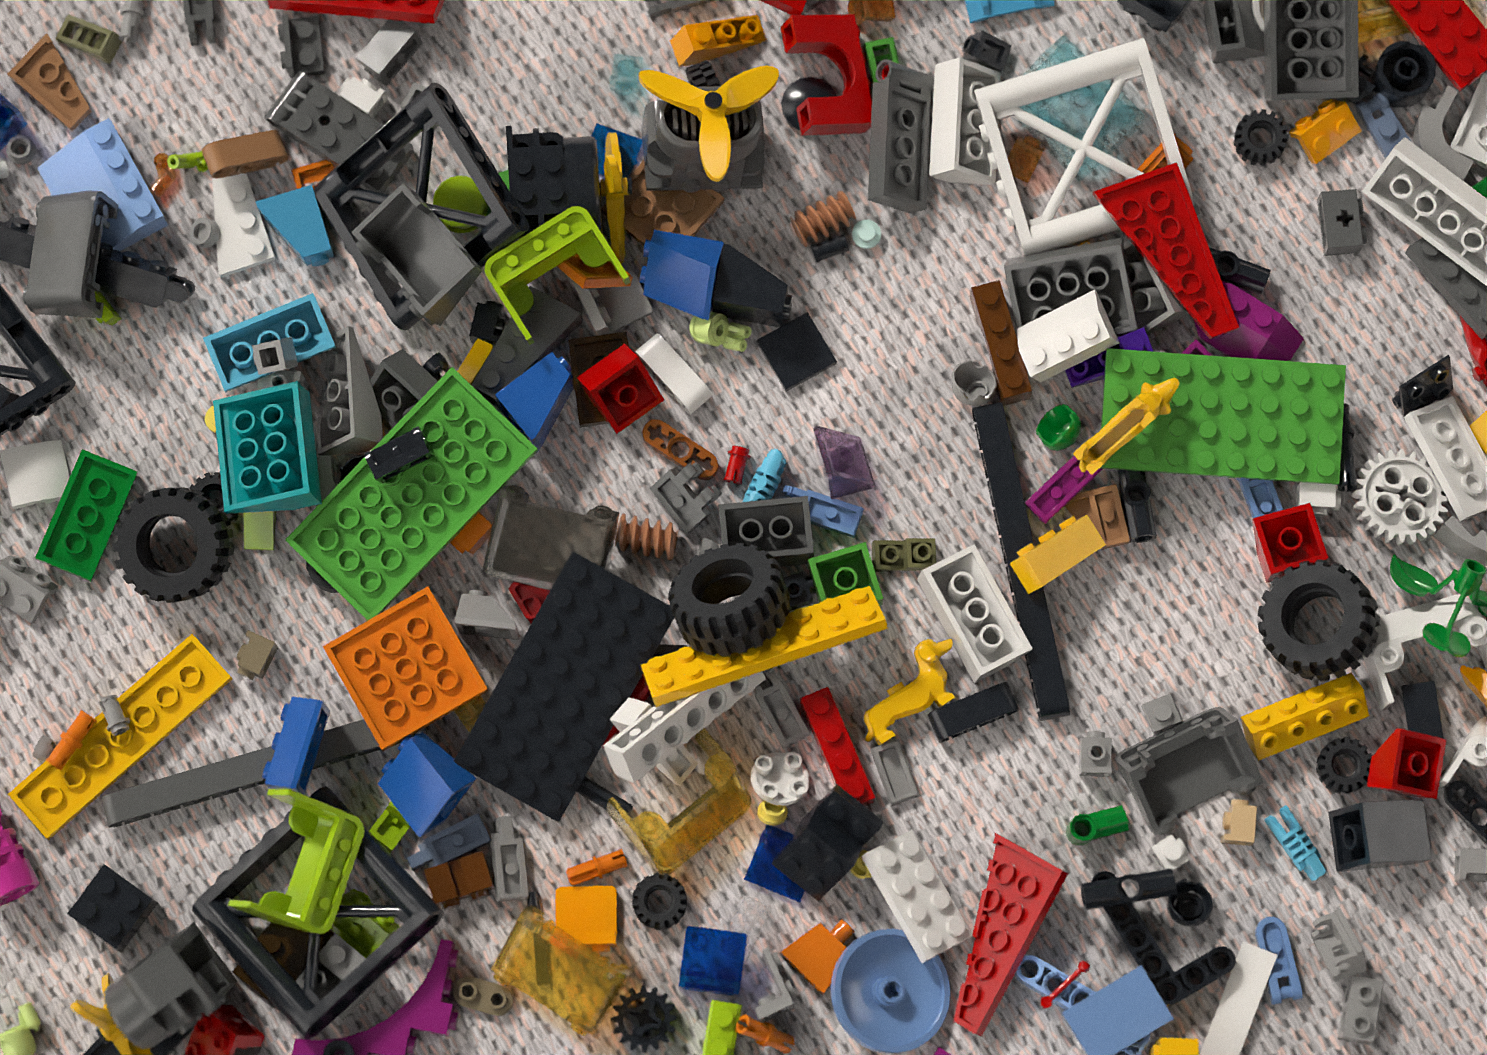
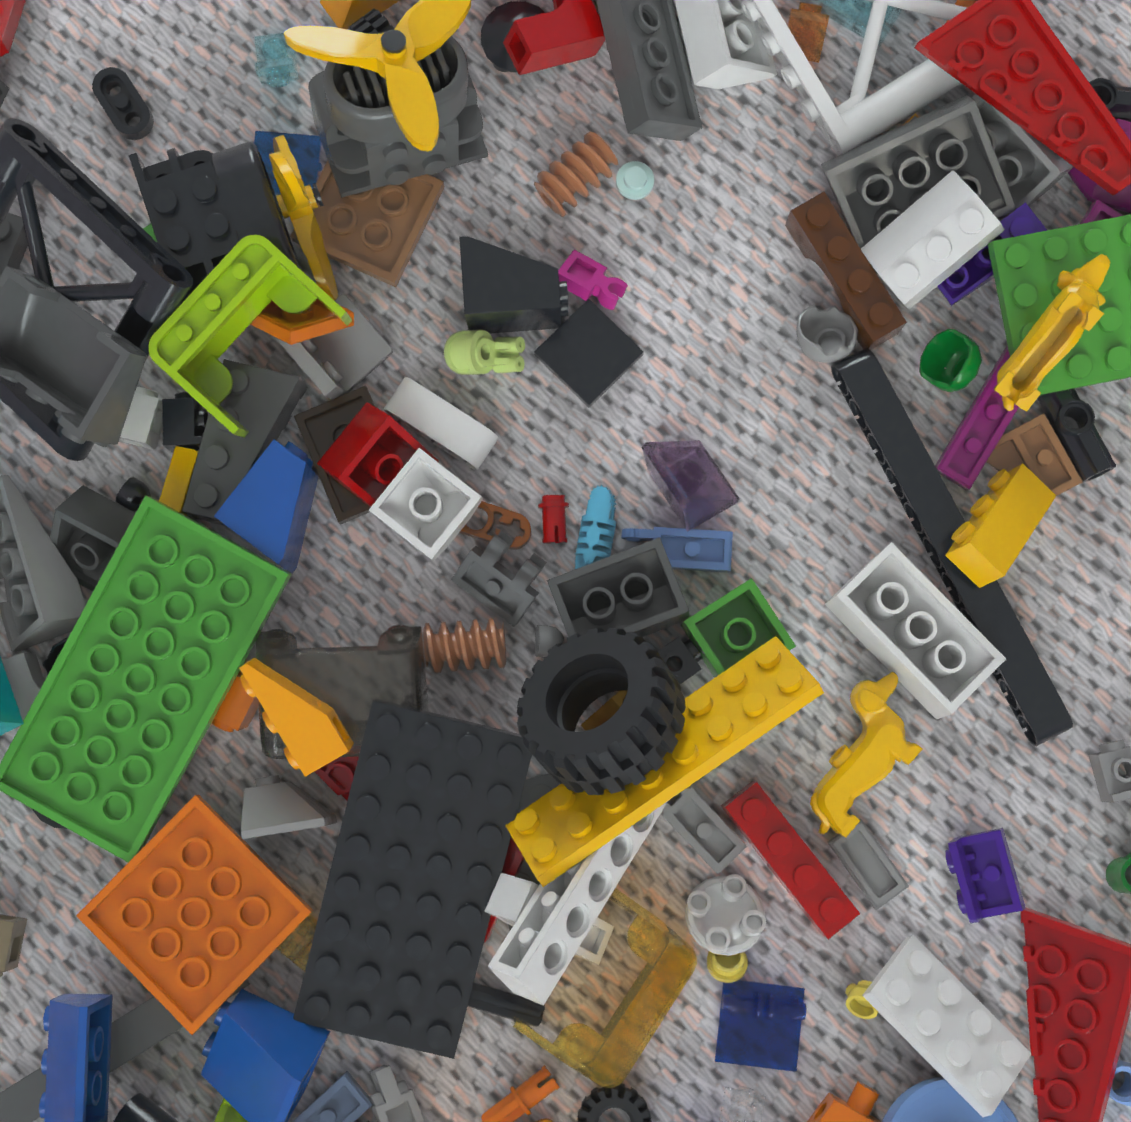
camera: 15 degrees left, 5 degrees up
(398, 455) = (105, 634): black hinge -> none
(460, 316) = (143, 420): none -> white brick
(462, 195) = (99, 266): lime head -> none
(504, 79) = (124, 105): none -> black plate
(521, 554) = (303, 721): none -> light orange slope
(647, 428) = (426, 505): none -> white slope
(681, 271) = (415, 288): blue slope -> none
(810, 296) = (588, 278): none -> dark pink plate
(827, 842) = (815, 991): black bracket -> none
(830, 248) = (594, 209): black pin -> none
(903, 555) = (799, 576): olive slope -> none
(973, 710) = (948, 760): black beam -> none
(975, 800) = (984, 875): none -> dark purple bracket

